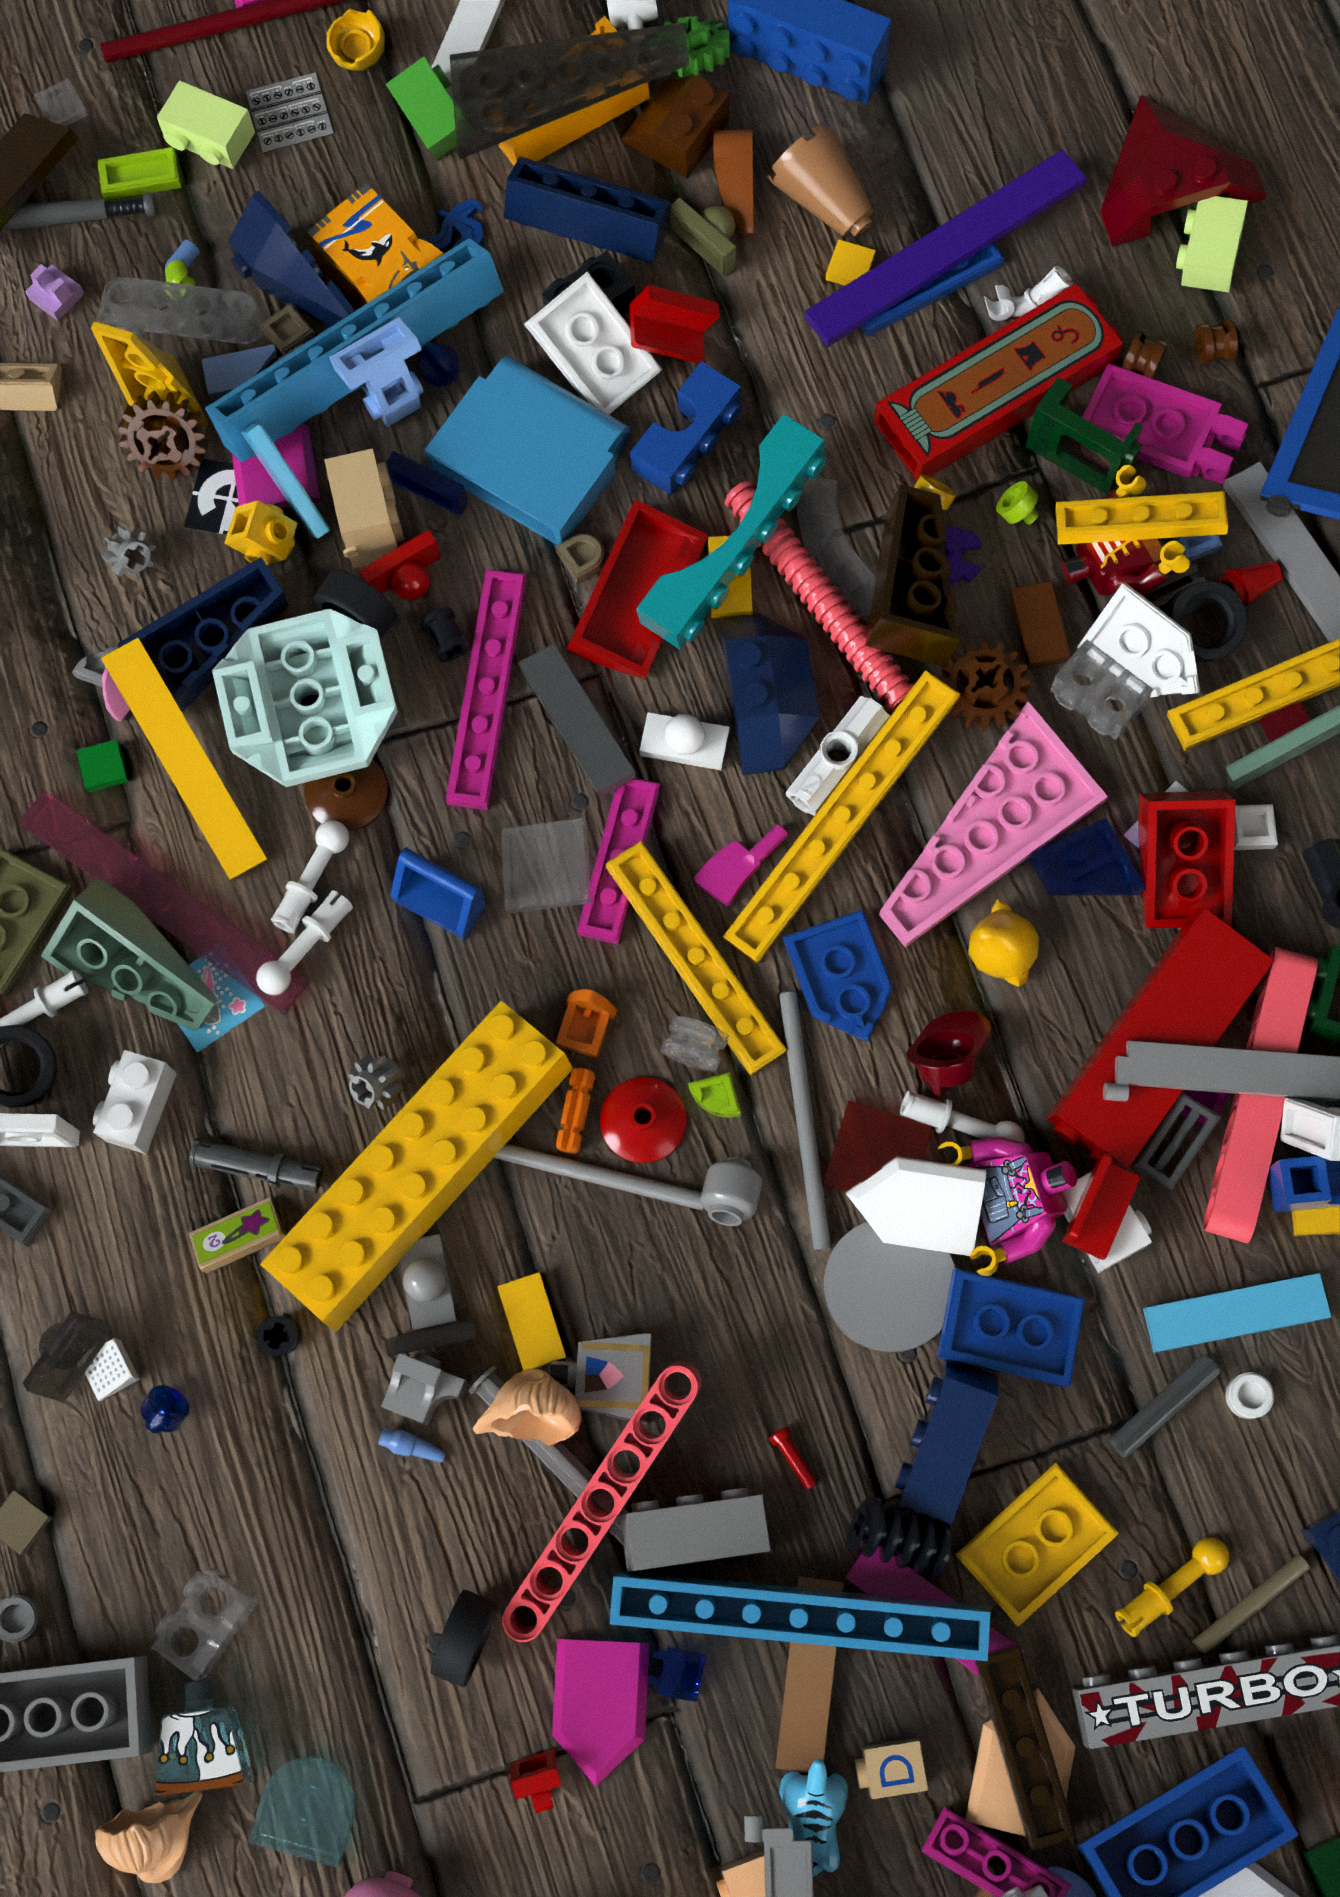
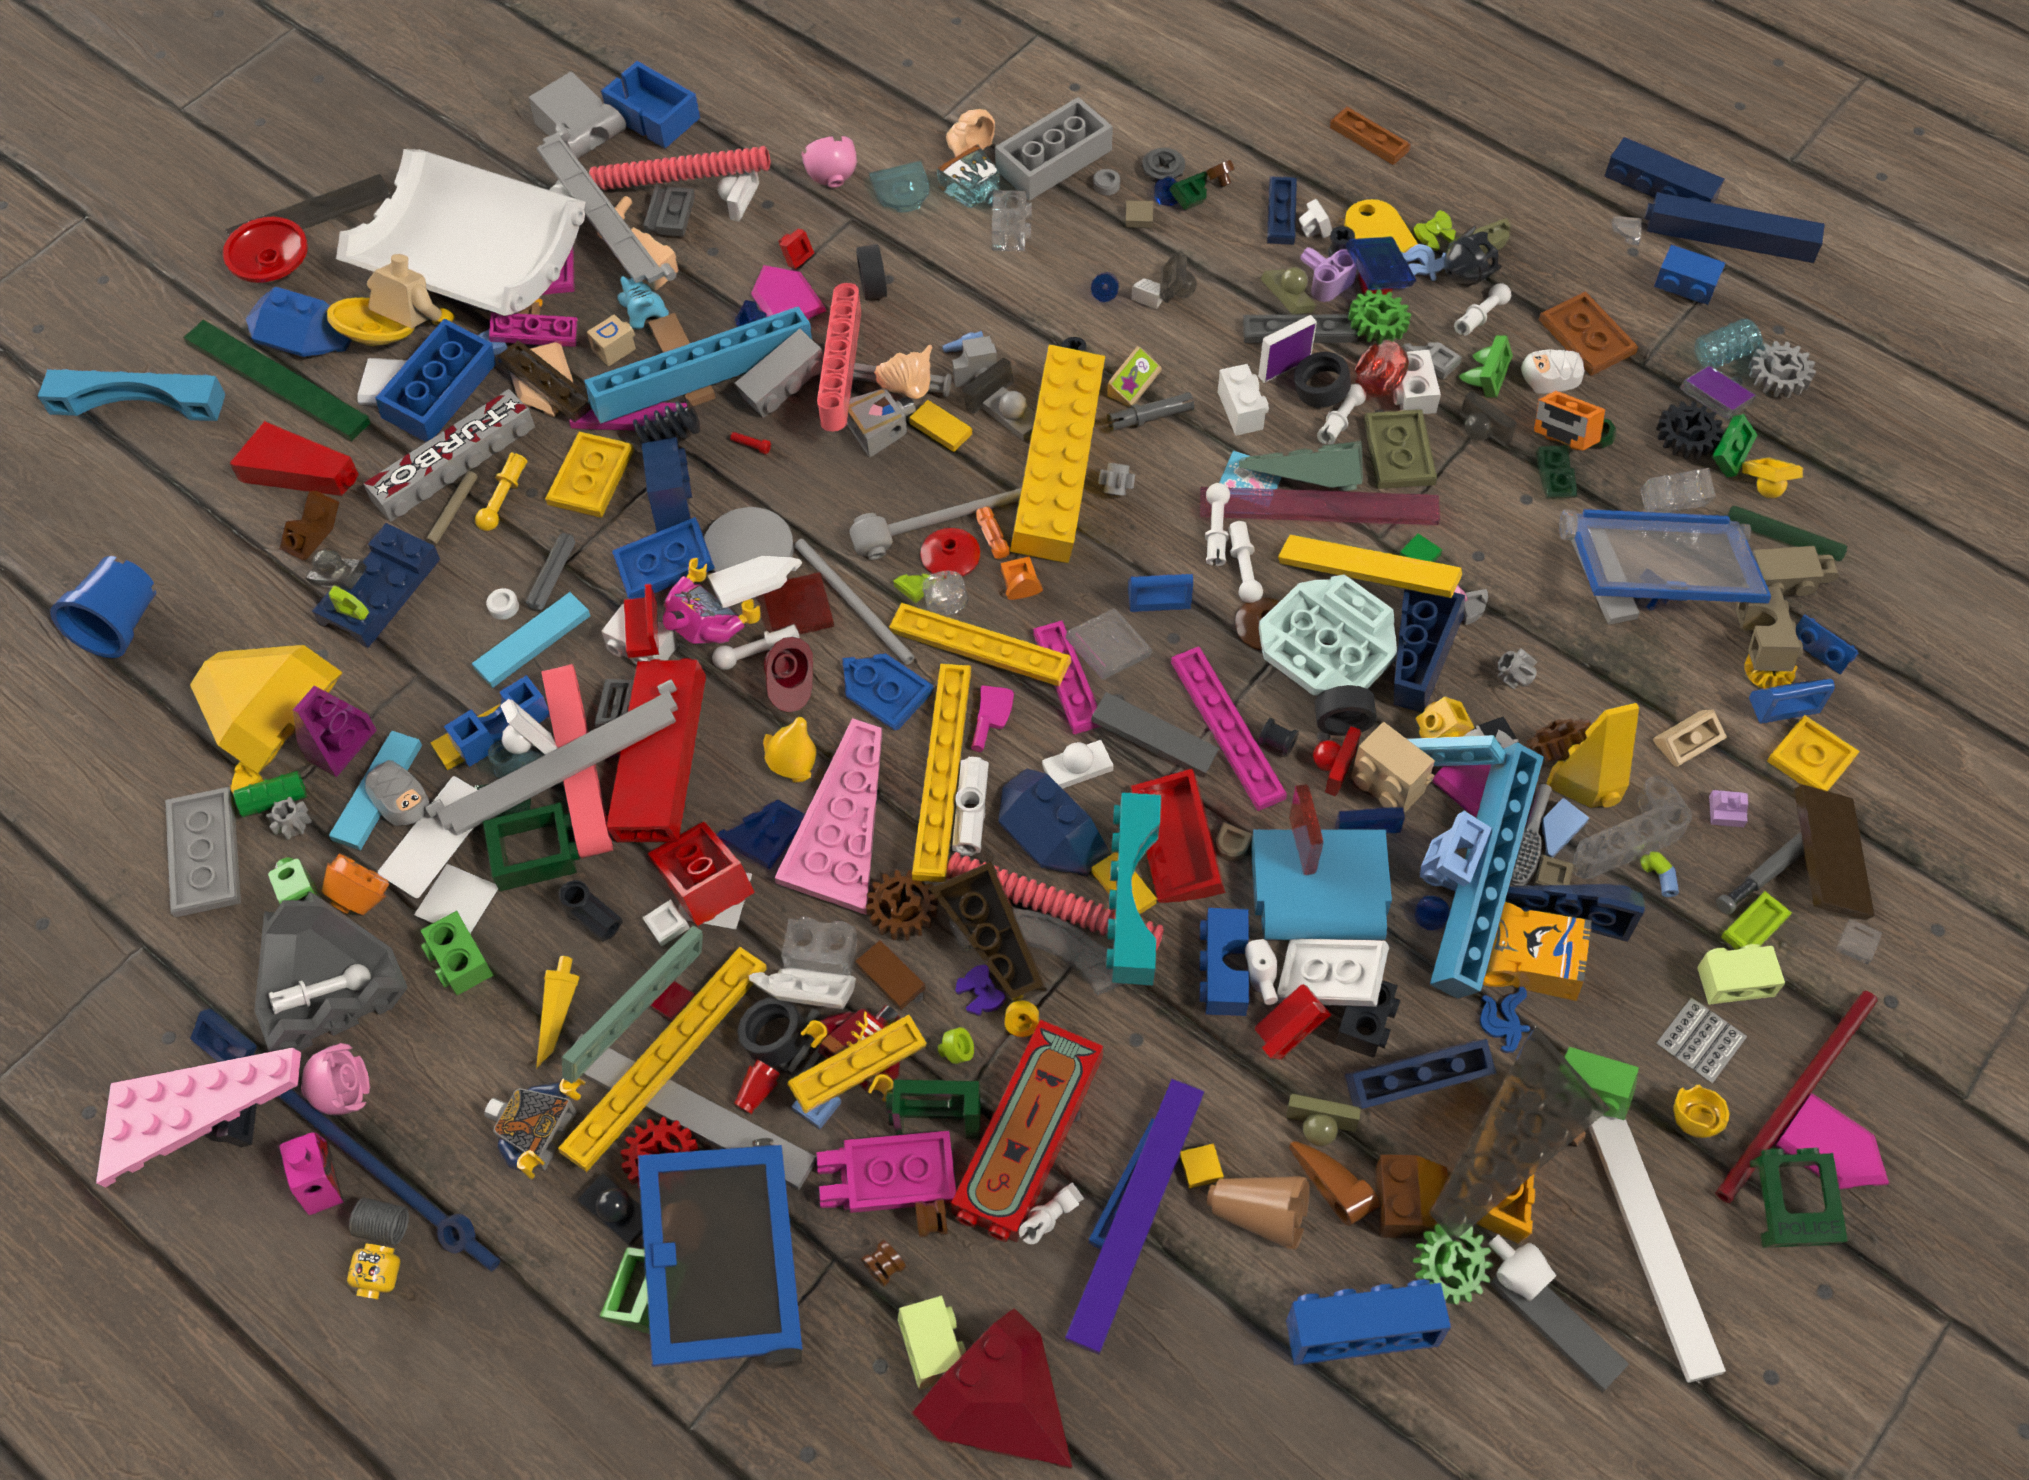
camera: 145 degrees right, 15 degrees down
(519, 464) = (1306, 829): none -> clear red tile
(657, 395) = (1262, 969): none -> white piece

